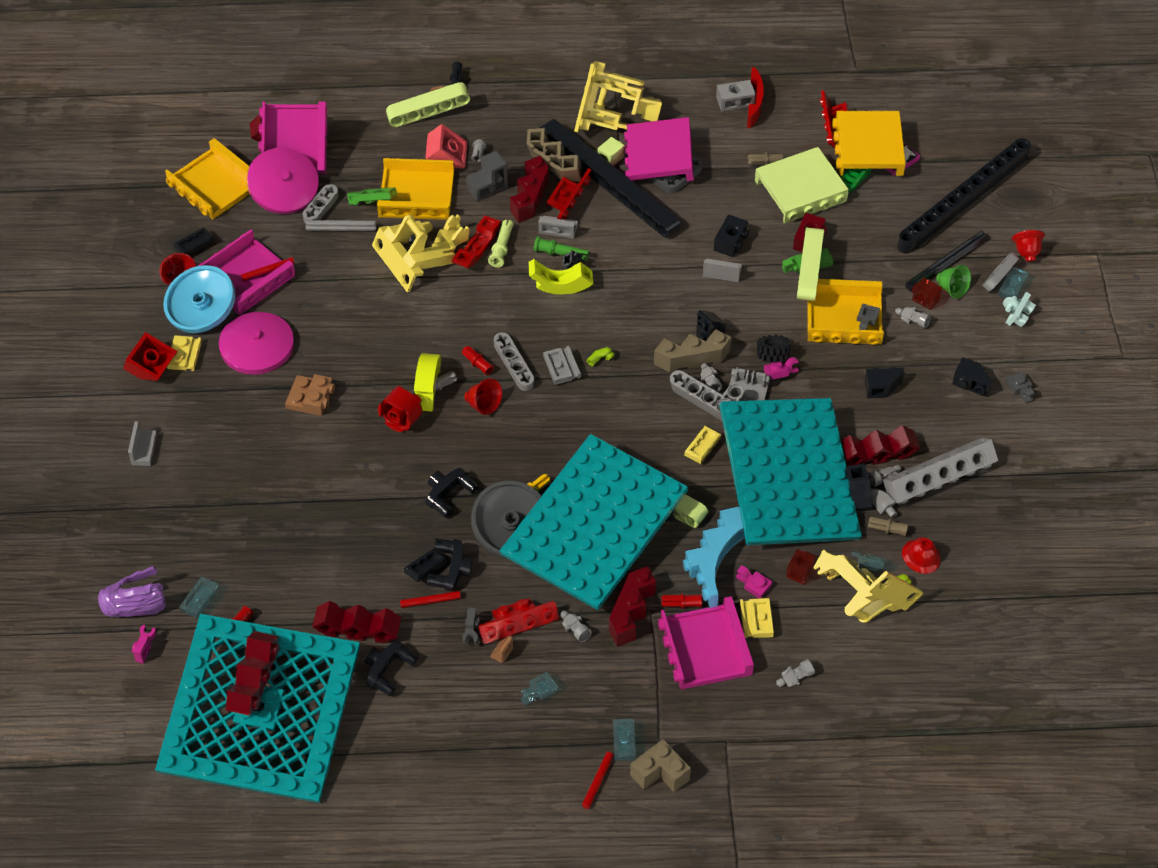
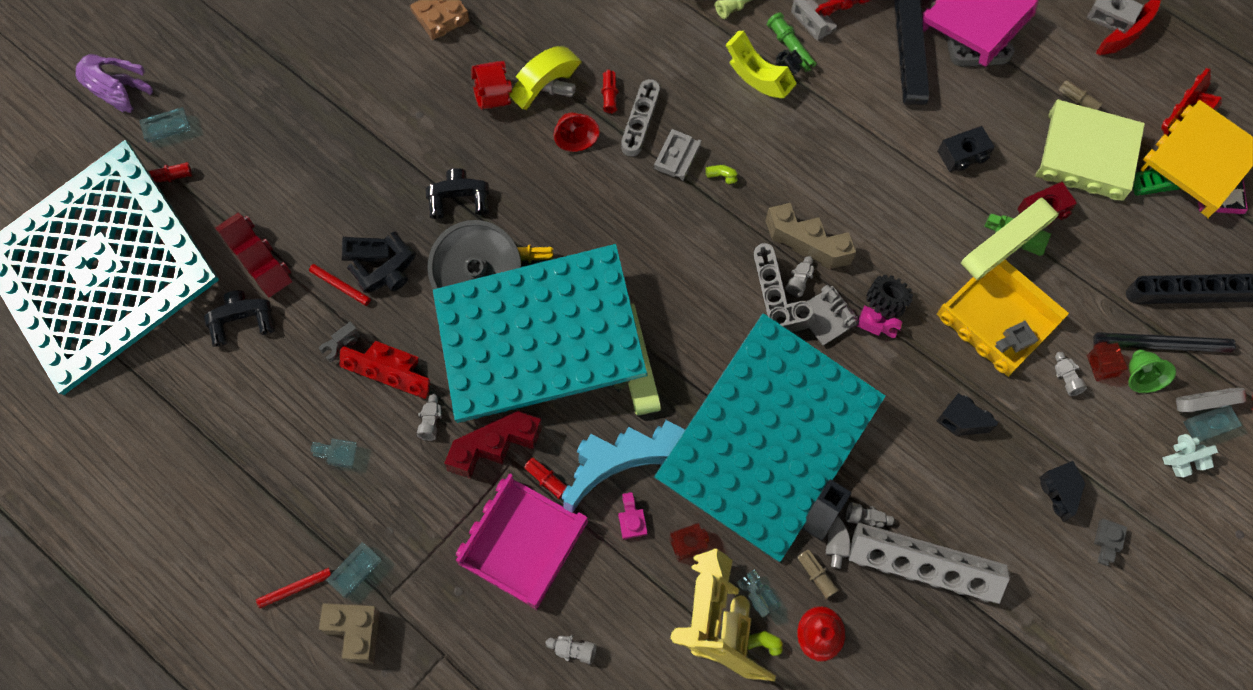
camera: 40 degrees right, 15 degrees up
(143, 645) = (79, 132): dark pink plate -> none
(252, 673) = (100, 231): dark red brick -> none
(502, 649) = (346, 387): medium nougat slope -> none
(702, 444) = (723, 337): light yellow plate -> none
(707, 323) = (850, 220): black slope -> none
(721, 270) = (923, 176): light grey panel -> none
(756, 618) = (594, 557): light yellow plate -> none
(880, 447) = (891, 484): dark red brick -> none

